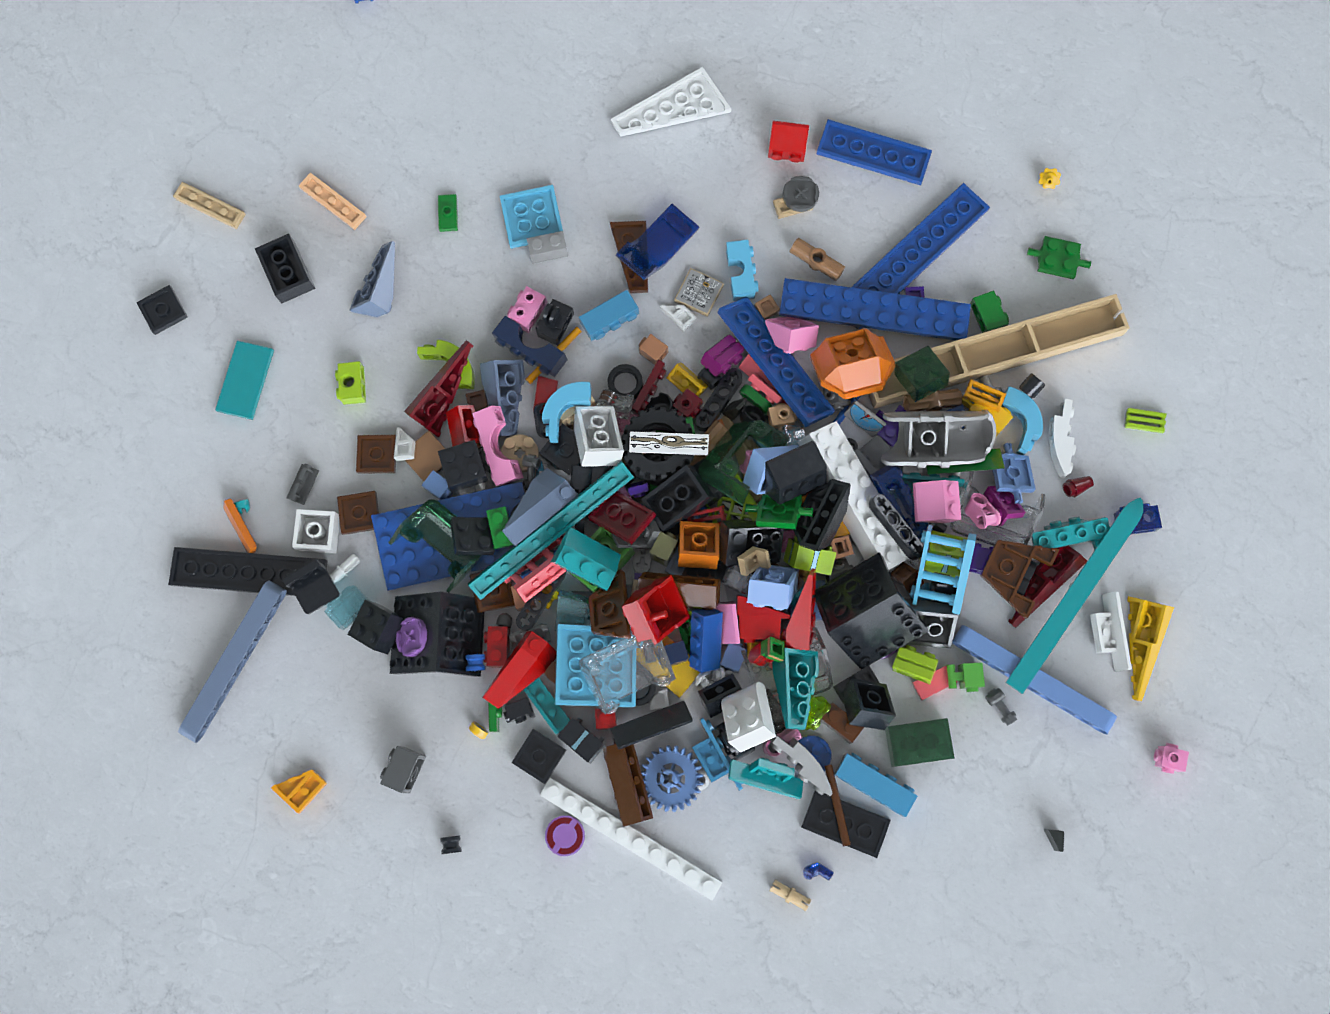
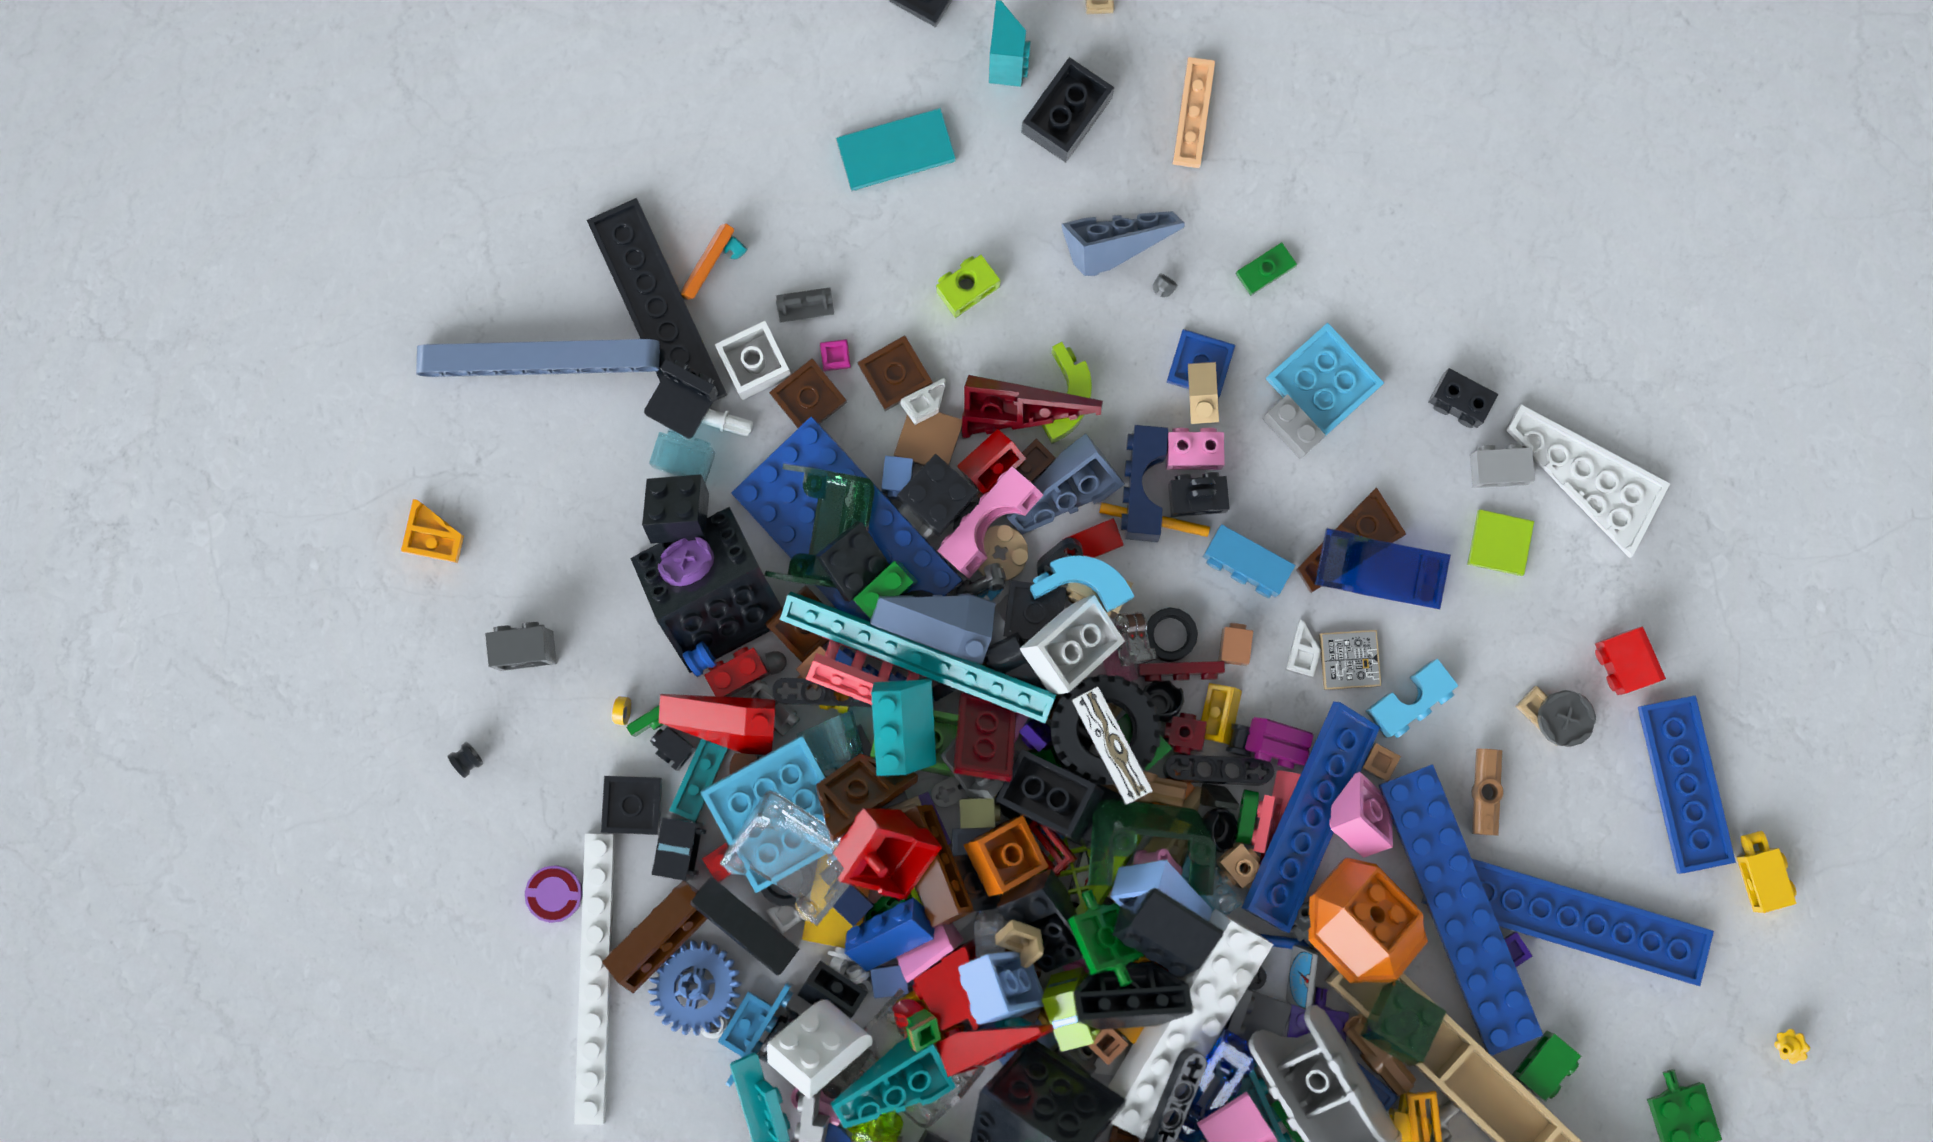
camera: 55 degrees right, 5 degrees up
(226, 278) = (1008, 49): none -> teal slope
(344, 483) = (835, 355): none -> dark pink tile
(422, 272) = (1165, 285): none -> dark grey hinge
(479, 279) = (1199, 349): none -> blue tile
(497, 285) = (1203, 392): none -> tan slope
(588, 148) = (1462, 399): none -> black brick
(639, 149) = (1502, 466): none -> light grey brick
(681, 174) = (1500, 542): none -> lime tile
(947, 139) = (1765, 874): none -> yellow brick

